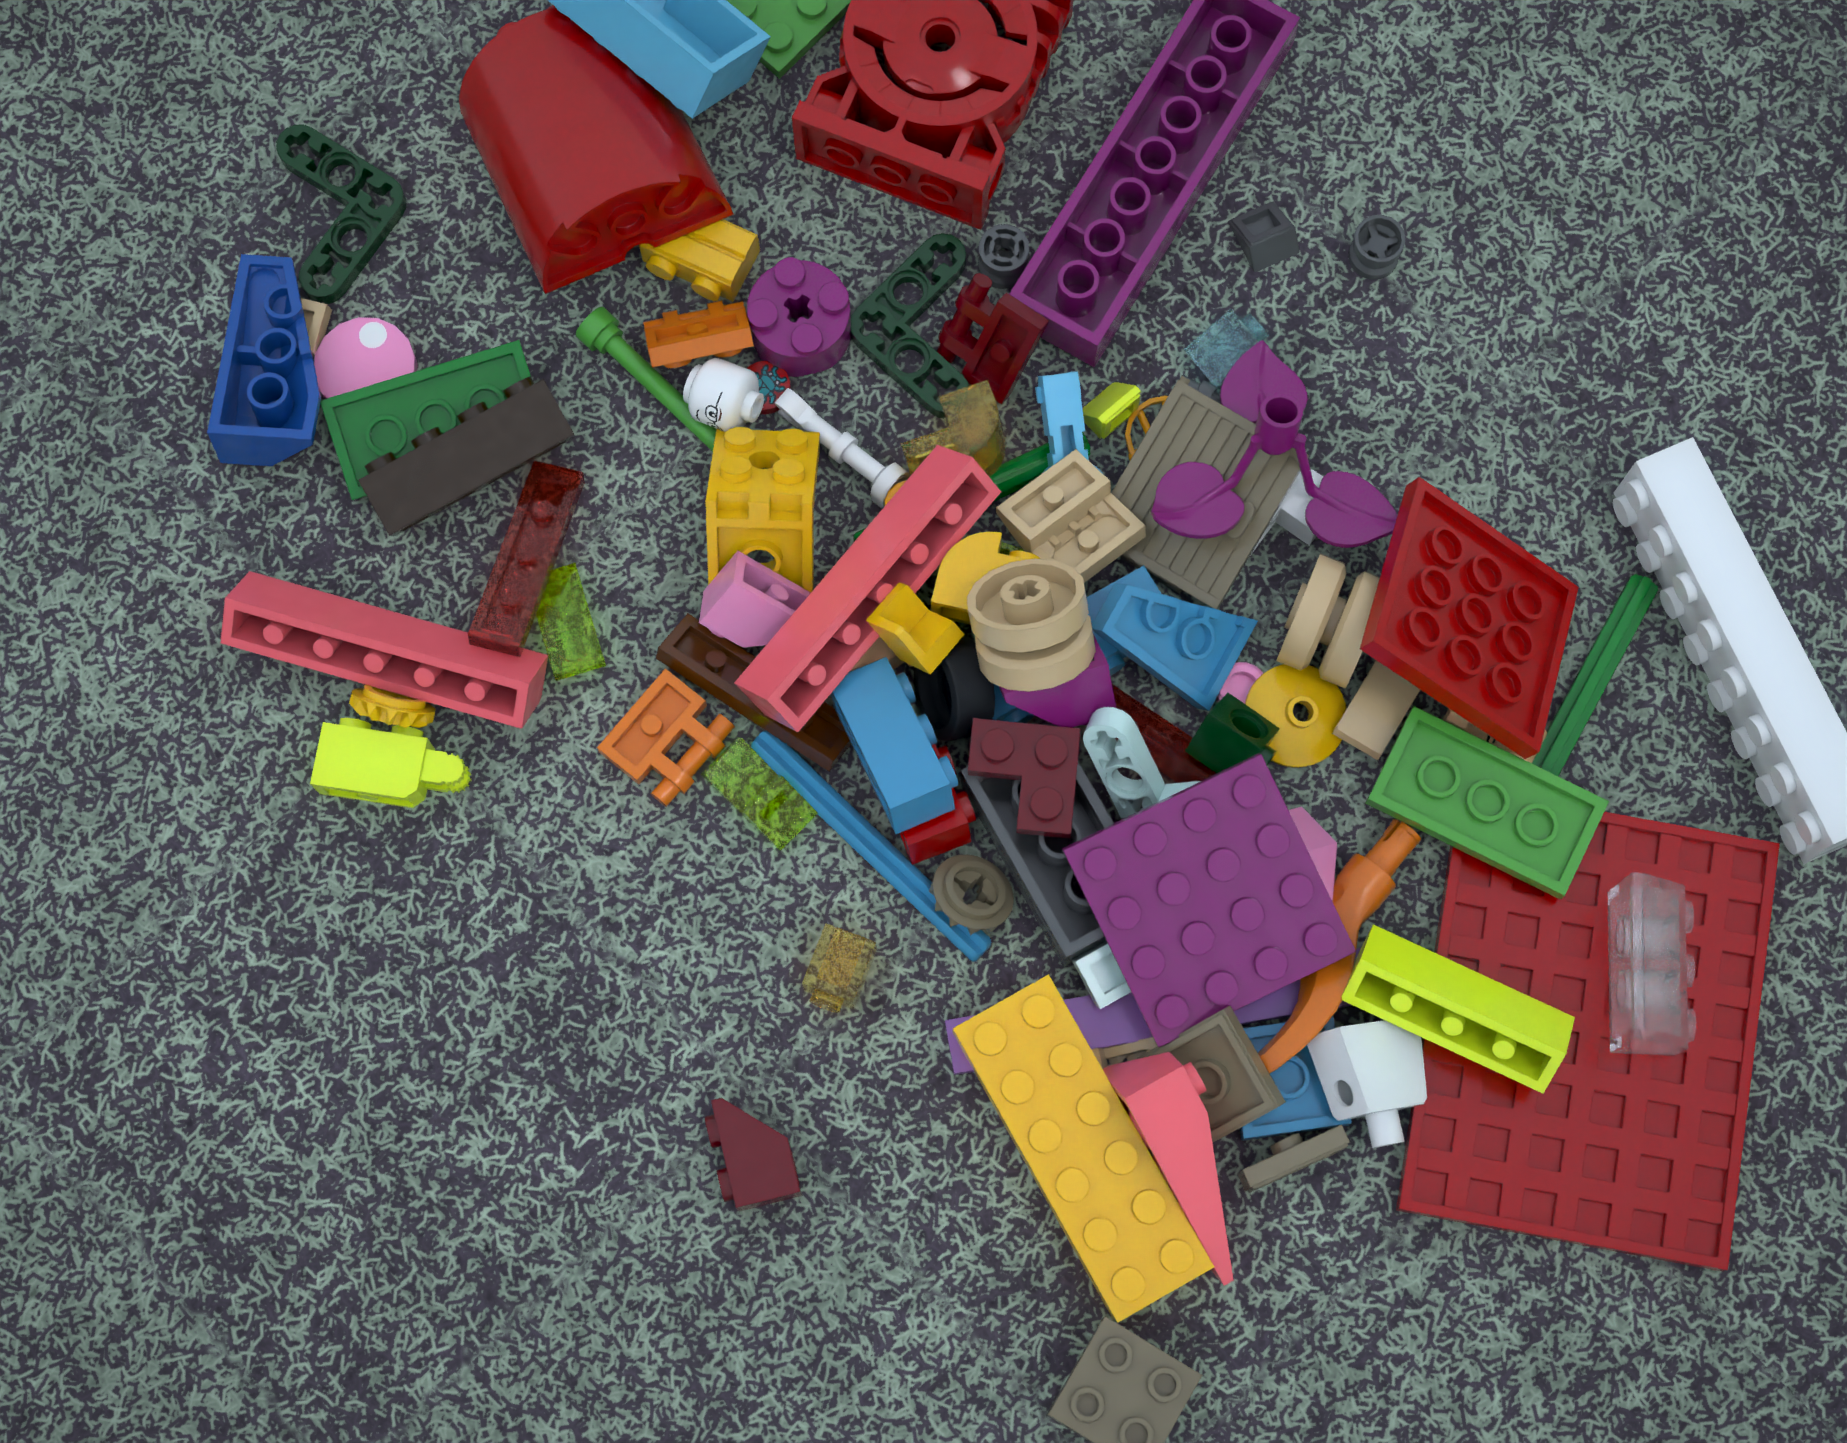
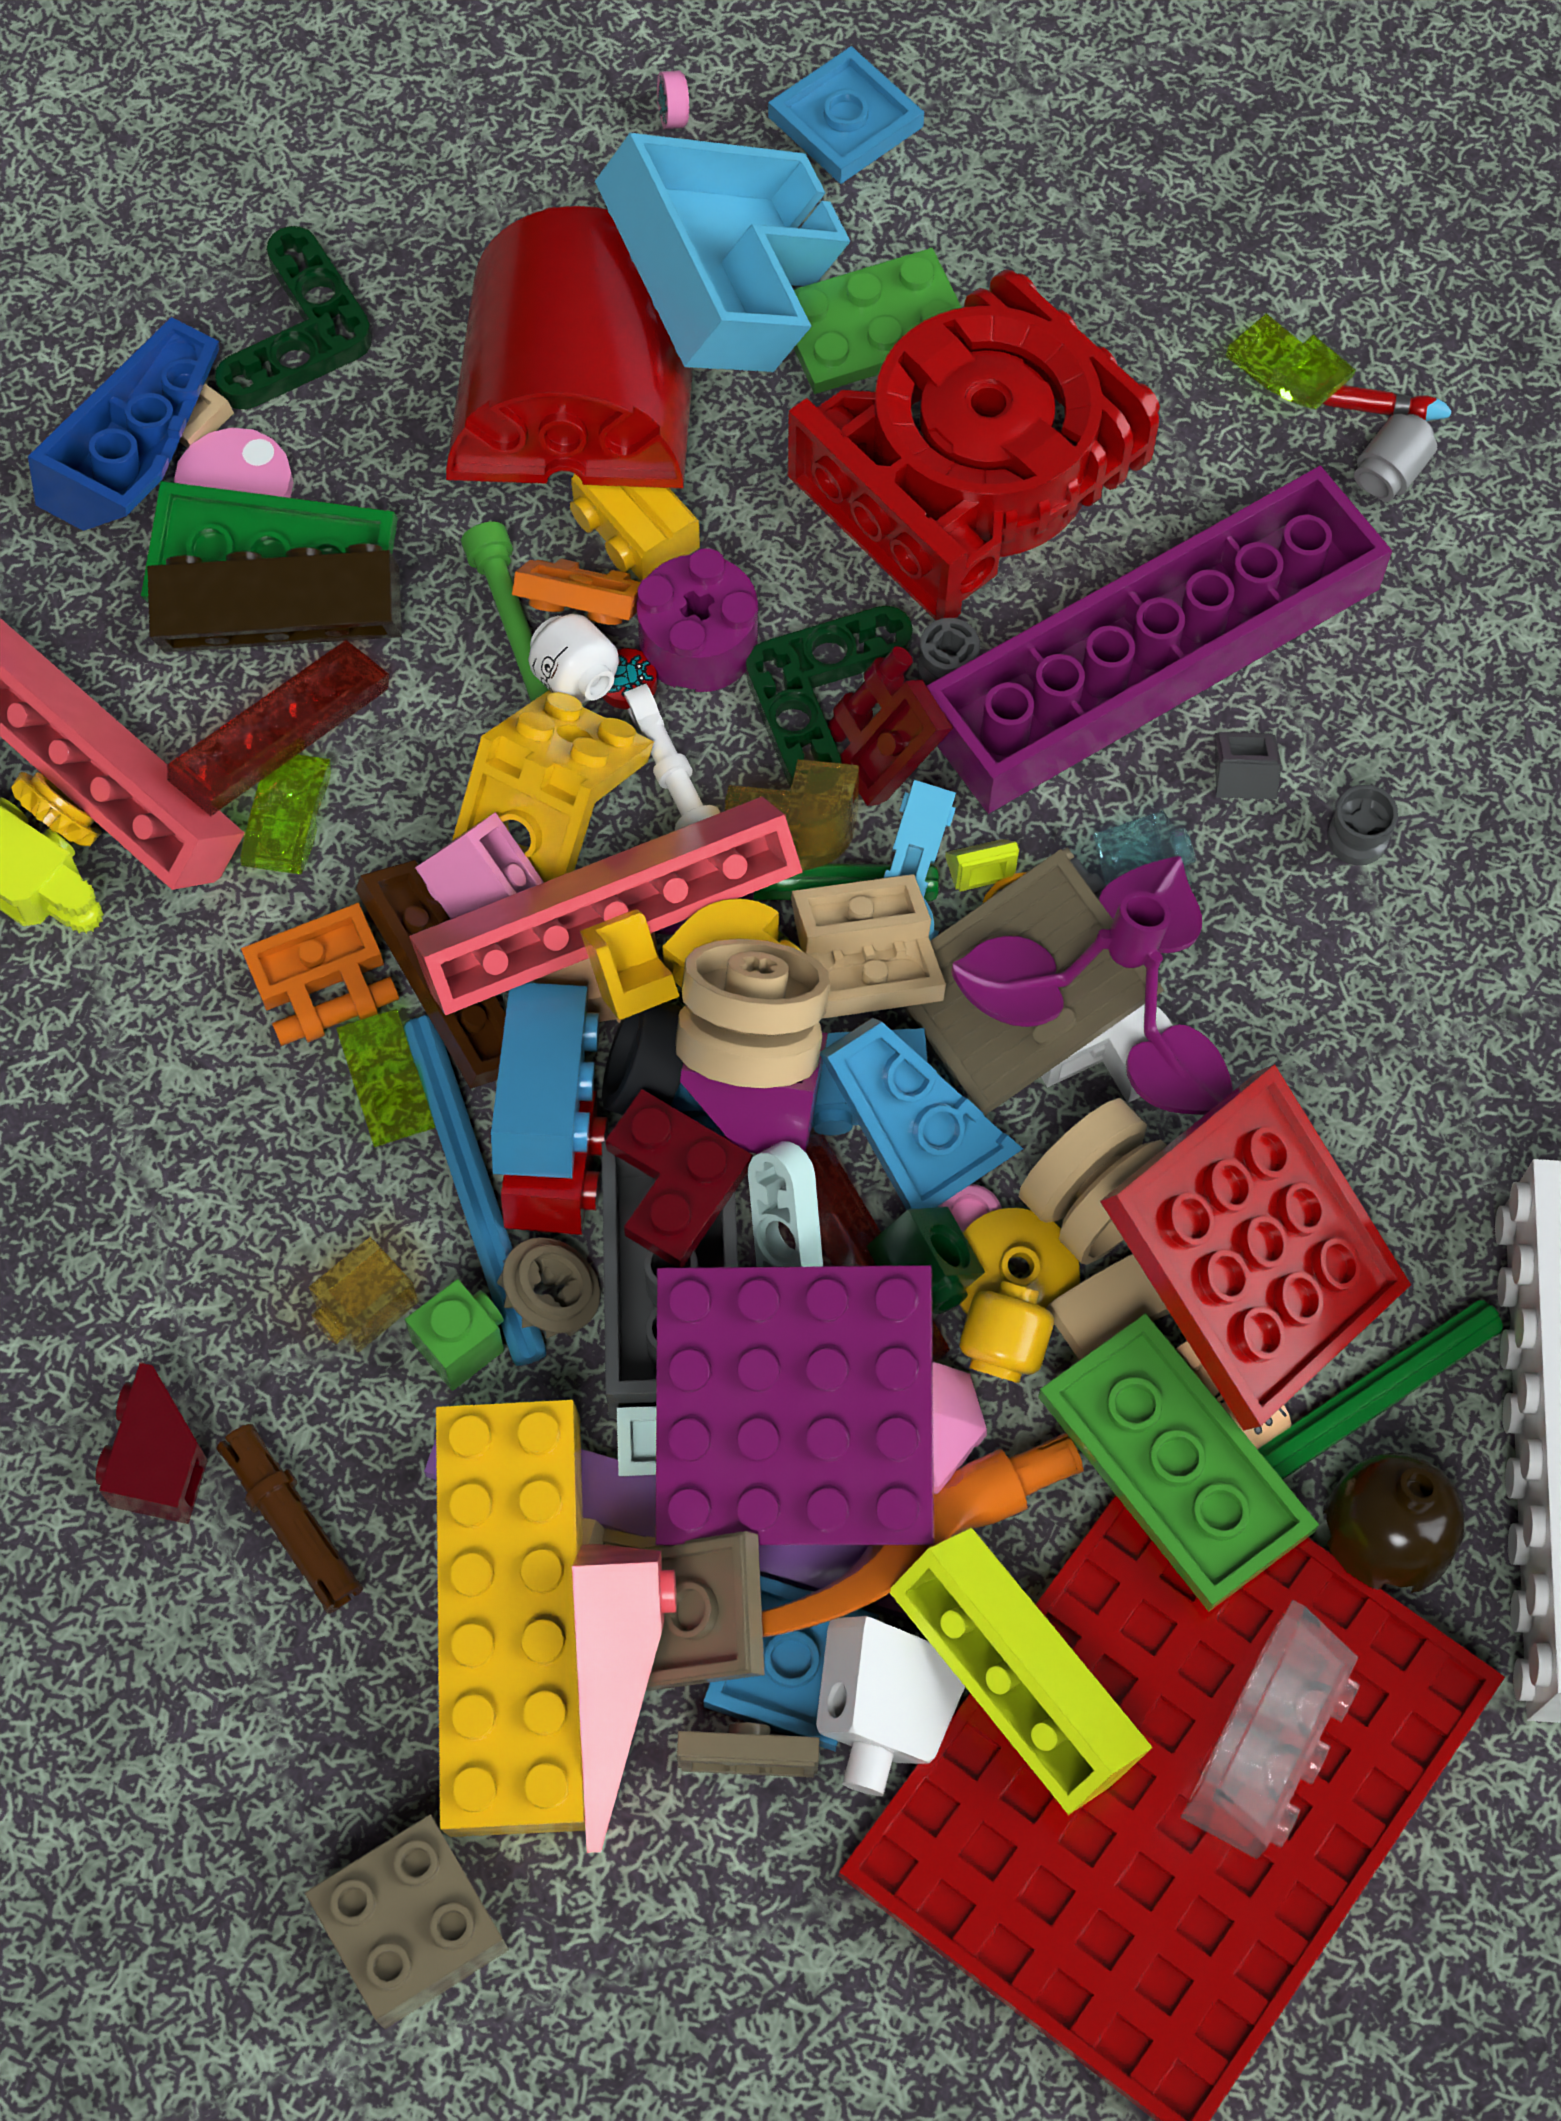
camera: 25 degrees right, 10 degrees down
(883, 1159) = (280, 1504): none -> reddish brown pin
(925, 961) = (457, 1333): none -> bright green brick
(1318, 766) = (1007, 1332): none -> yellow head
(1654, 770) = (1395, 1521): none -> dark brown cylinder

